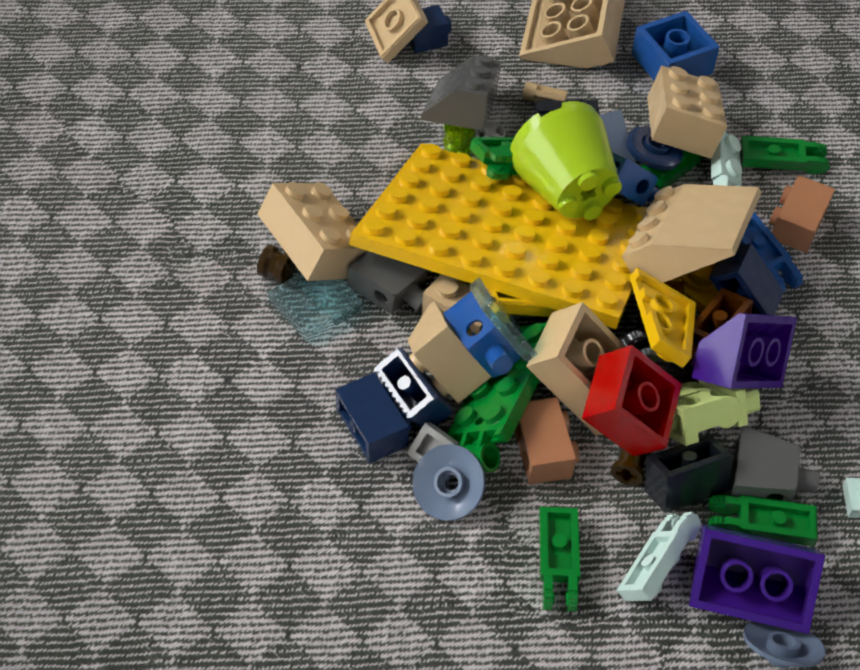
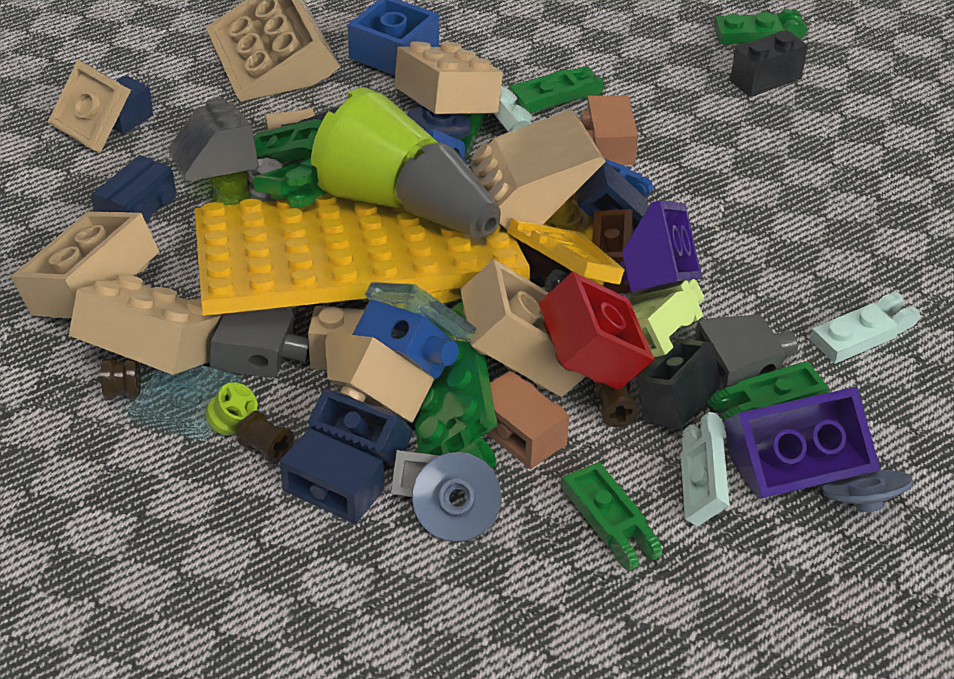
camera: 30 degrees left, 10 degrees down
(310, 154) = (87, 251): none -> tan brick
(340, 321) = (234, 398): none -> lime wheel
(346, 362) = (265, 437): none -> dark brown bush
(383, 112) = (137, 189): none -> dark blue brick
(514, 113) = (287, 142): none -> green plate
(597, 222) = (447, 192): none -> dark grey cone

